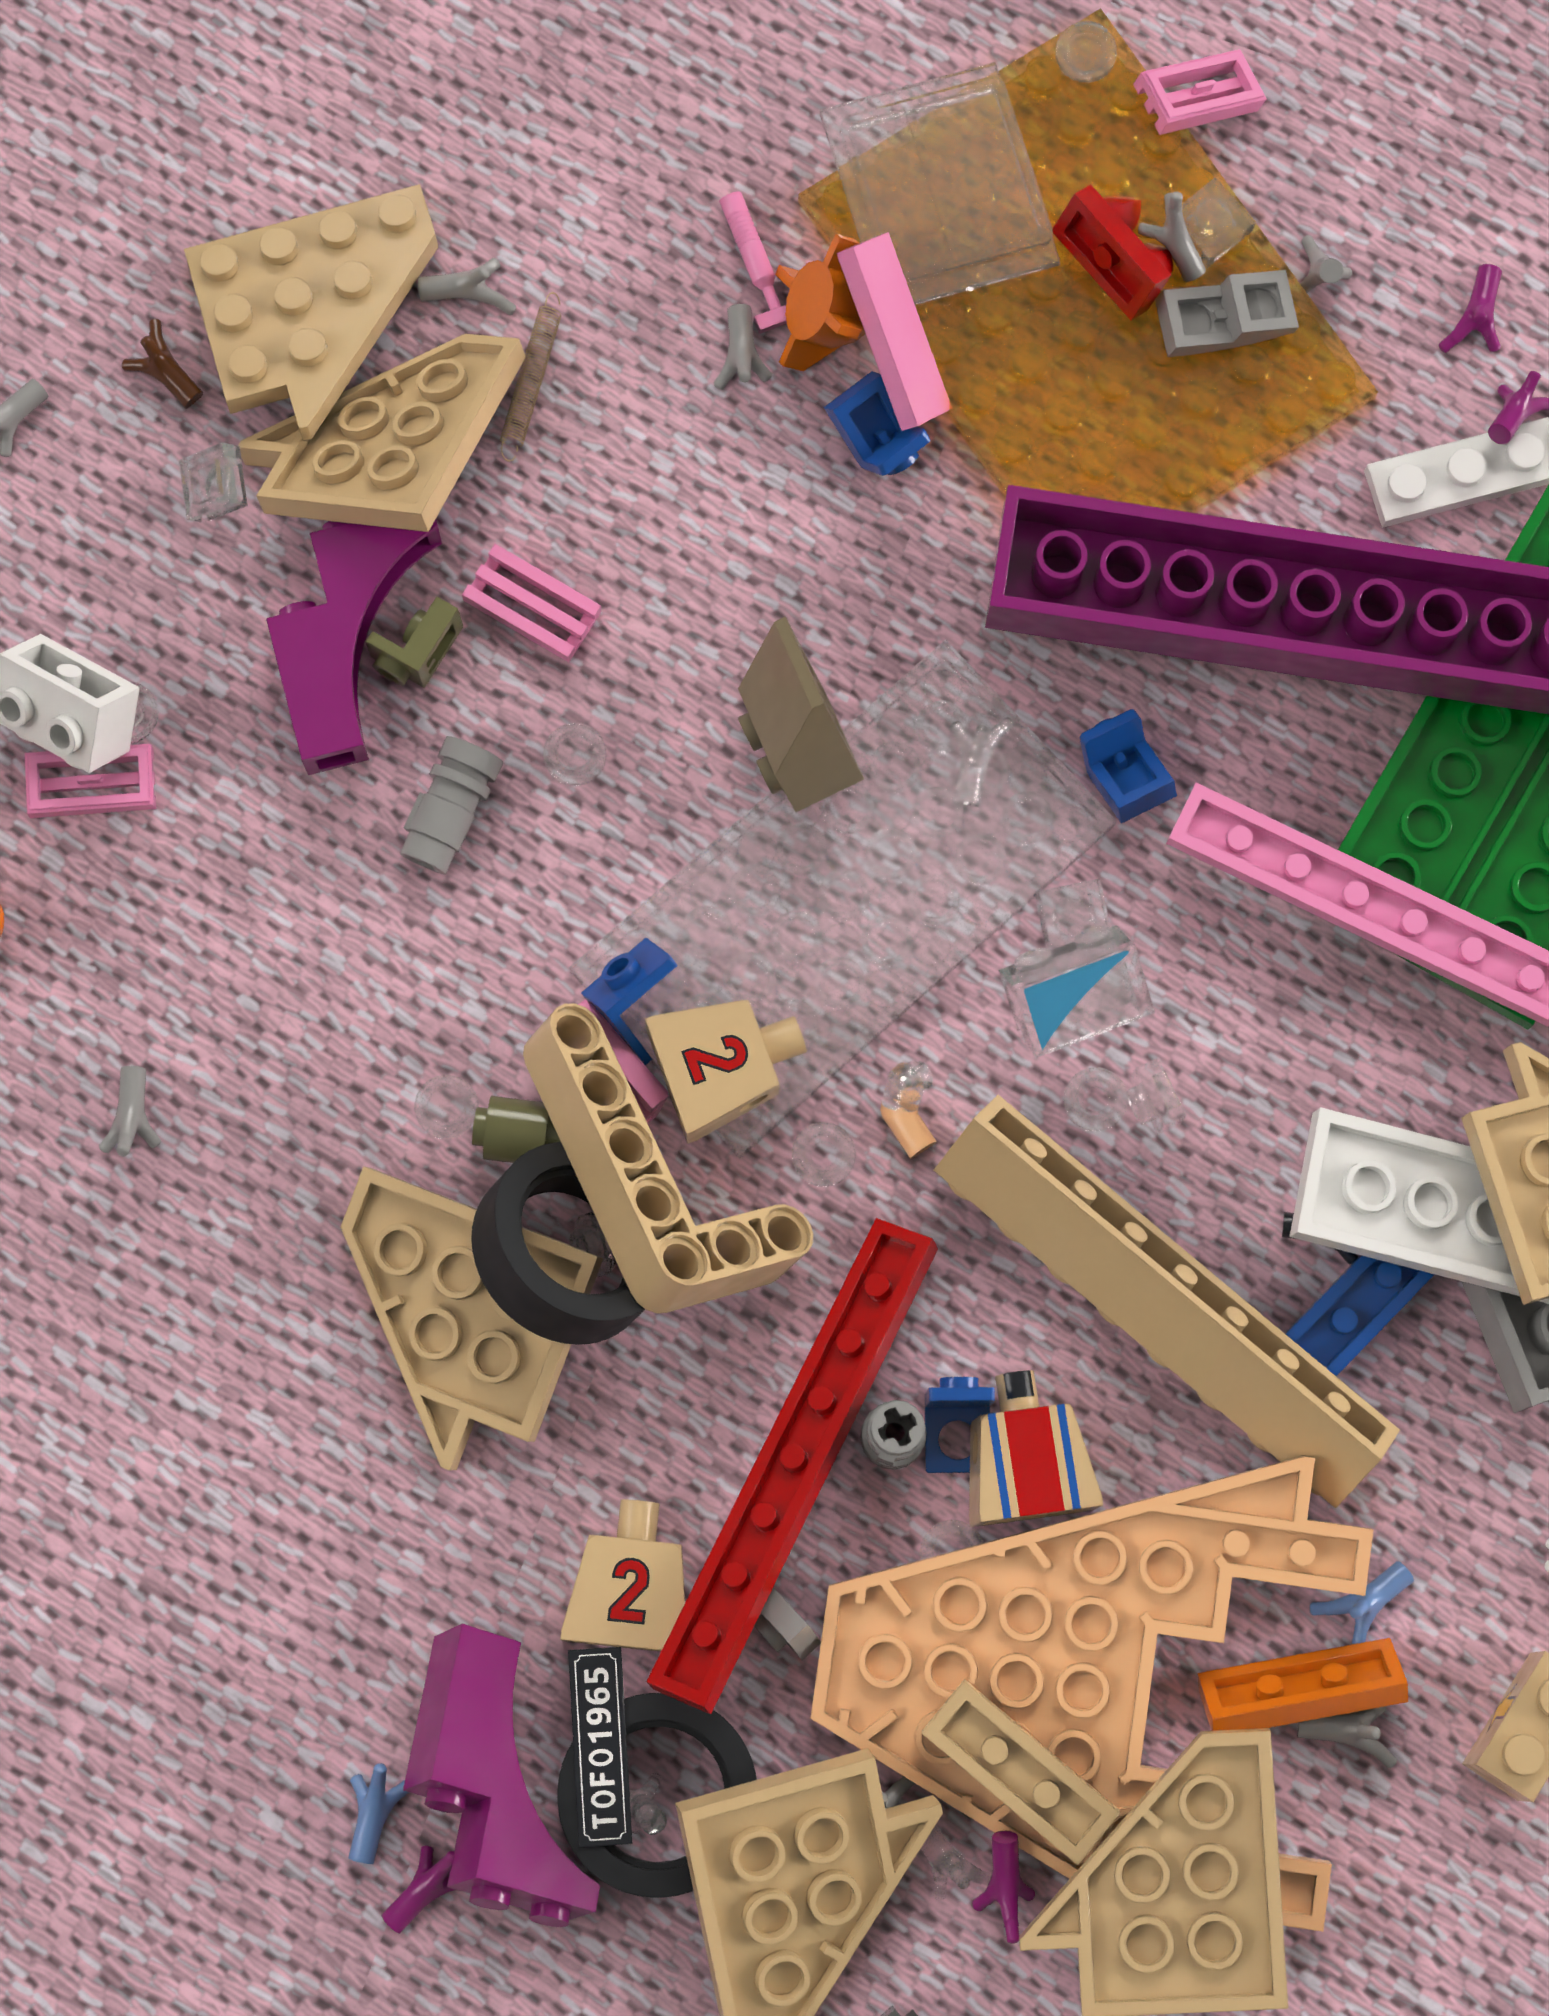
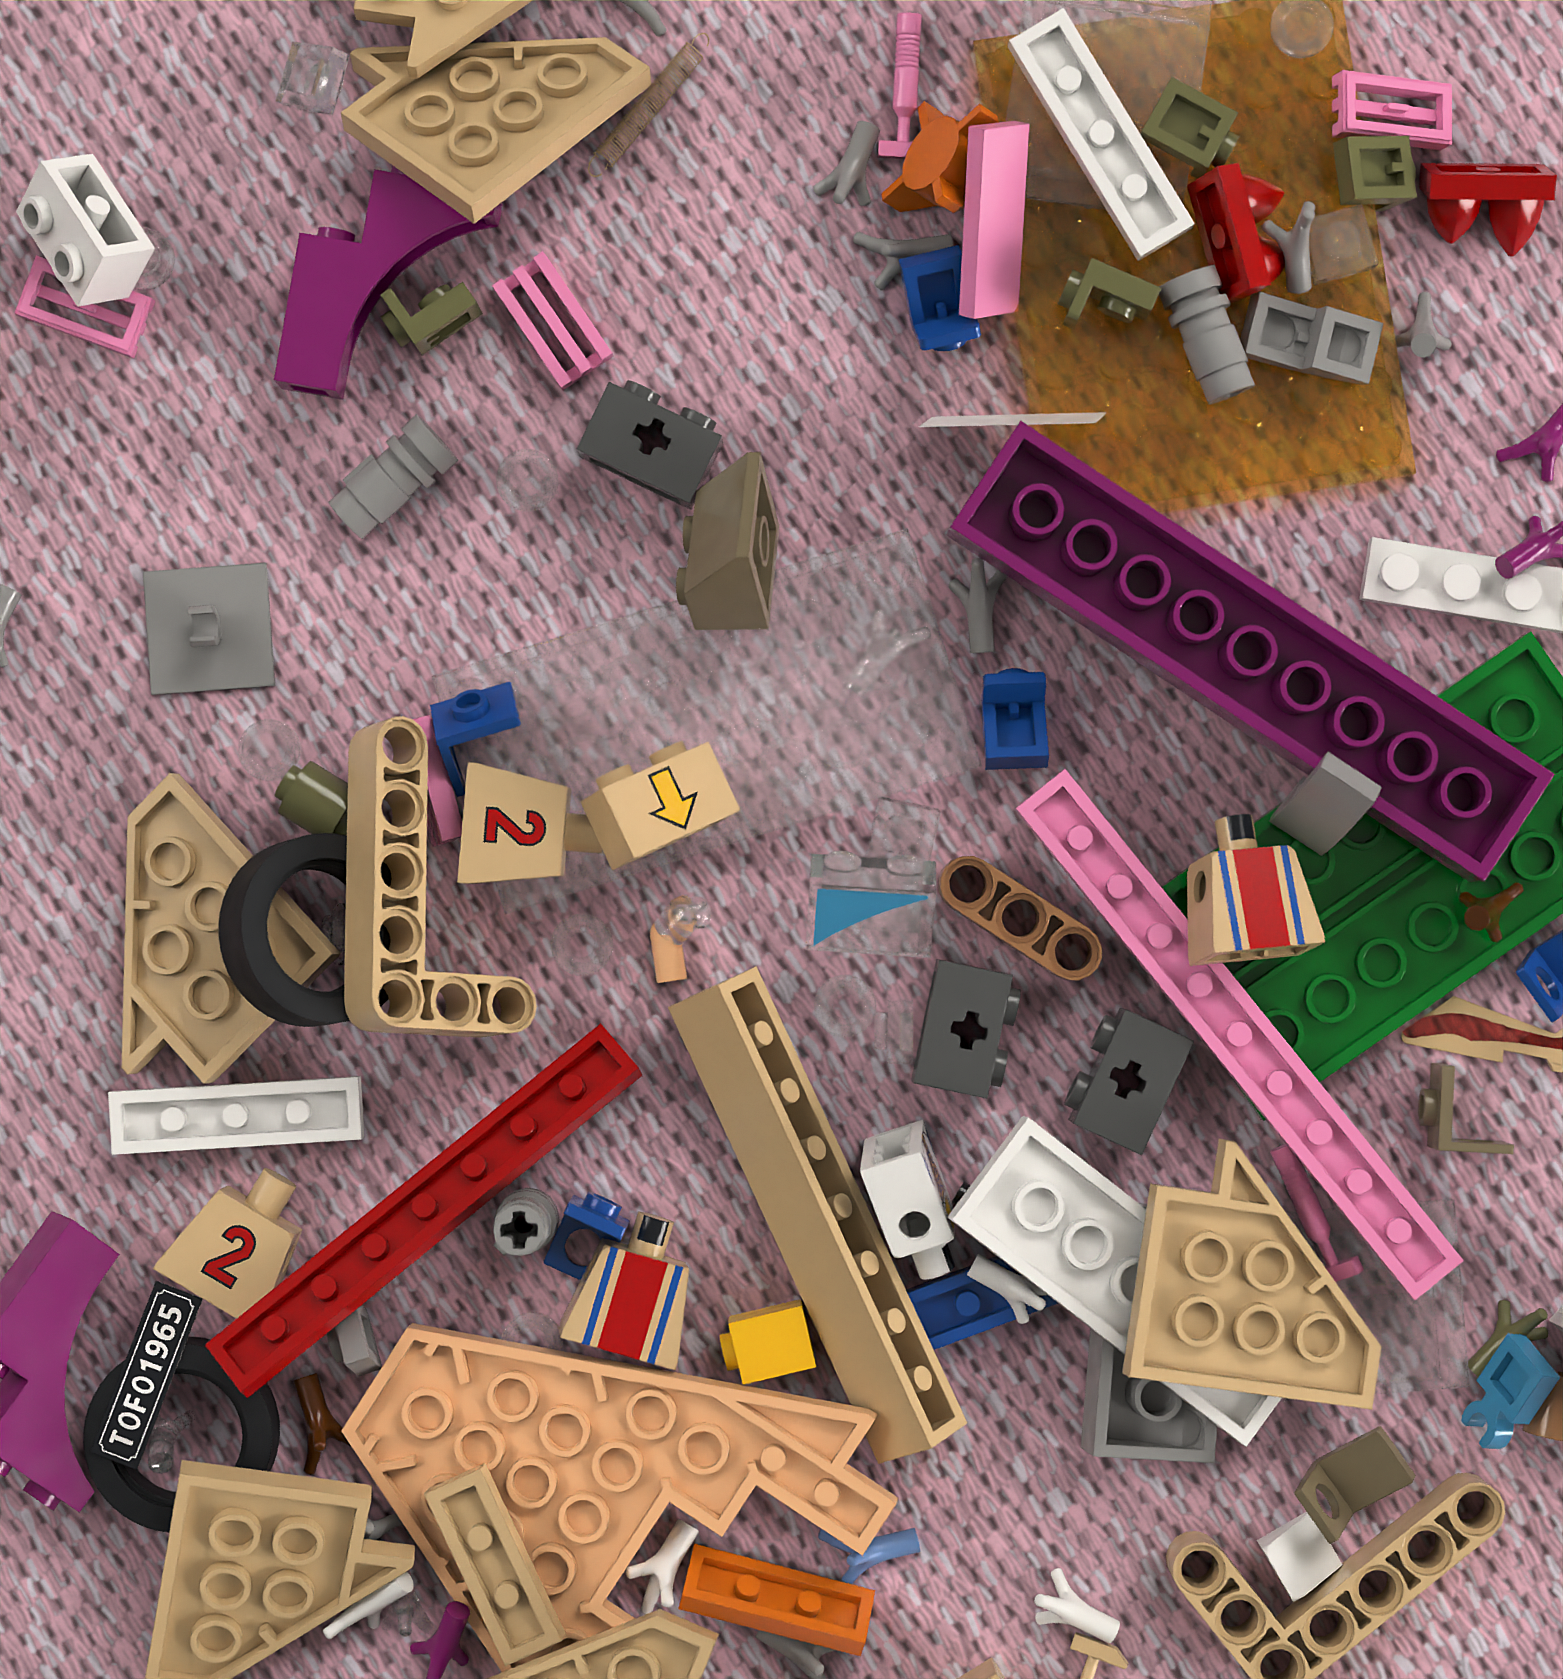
camera: 30 degrees right, 10 degrees up
(337, 1023) = (208, 628): none -> light grey piece
(570, 1462) = (236, 1115): none -> white plate
(706, 679) = (614, 443): none -> dark grey brick
(784, 1724) = (318, 1420): none -> reddish brown bar
(814, 406) = (899, 249): none -> light grey bar
(840, 978) = (659, 804): none -> tan brick
(918, 1876) = (371, 1605): none -> white bar
(956, 214) = (1100, 134): none -> white plate
(994, 500) = (1029, 419): none -> white sticker
(1033, 174) = (1191, 127): none -> olive bracket
(1033, 343) = (1119, 293): none -> olive bracket
(1043, 682) = (979, 605): none -> light grey bar
(1134, 345) = (1207, 333): none -> light grey axle
(1177, 1443) = (768, 1342): none -> yellow brick
(1179, 1704) = (664, 1566): none -> white bar
(1190, 1040) = (939, 1056): none -> dark grey brick
(1212, 145) = (1375, 170): none -> olive bracket
(1228, 1224) = (907, 1179): none -> white torso
(1245, 930) = (1049, 926): none -> medium nougat beam
(1344, 119) = (1513, 192): none -> red tile
(1376, 1281) = (1011, 1286): none -> white bar
(1408, 1014) = (1158, 1062): none -> dark grey brick
(1422, 823) = (1248, 900): none -> torso
(1448, 704) = (1325, 804): none -> light grey slope

